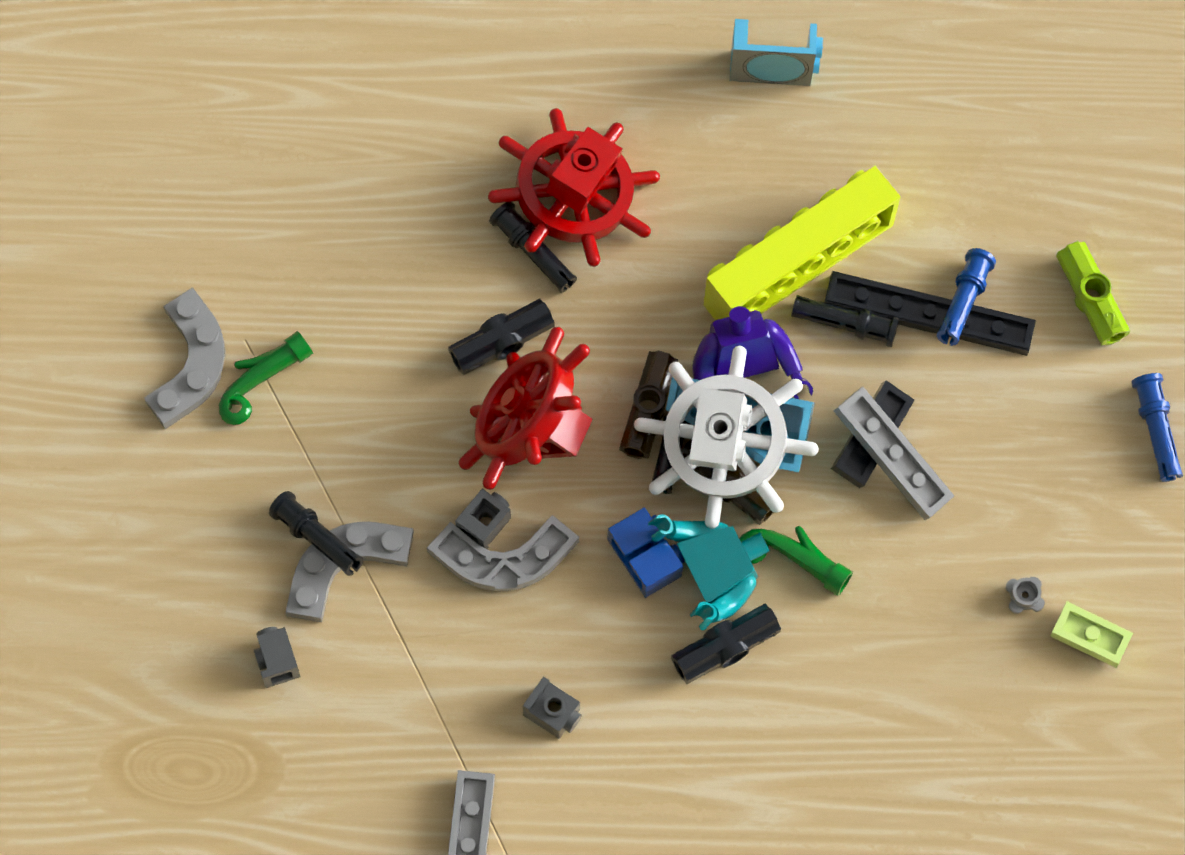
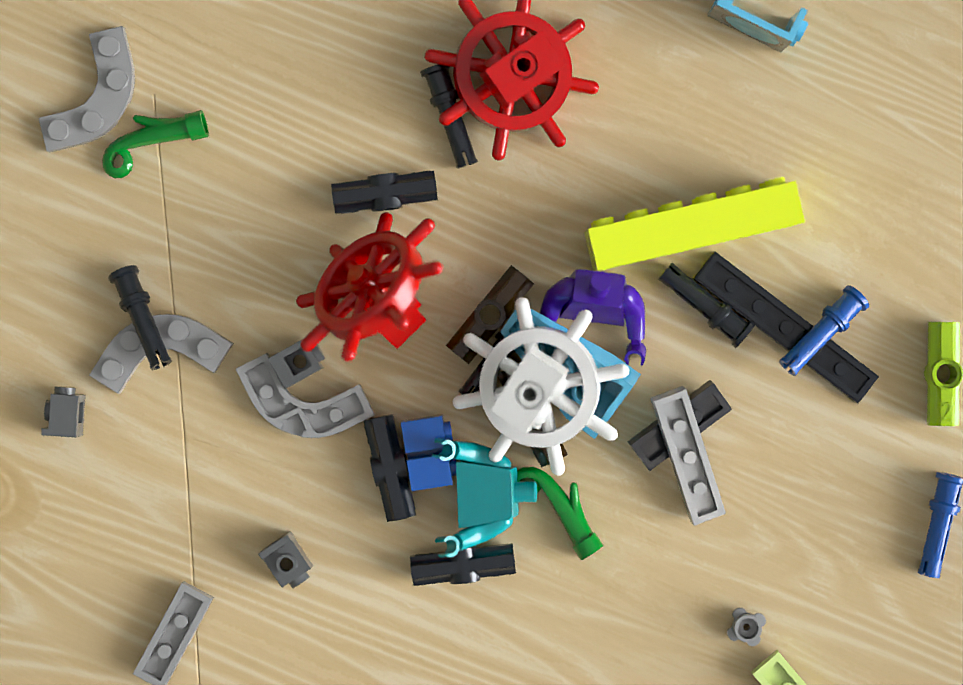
camera: 20 degrees right, 20 degrees up
(615, 581) = (389, 468): none -> black piece

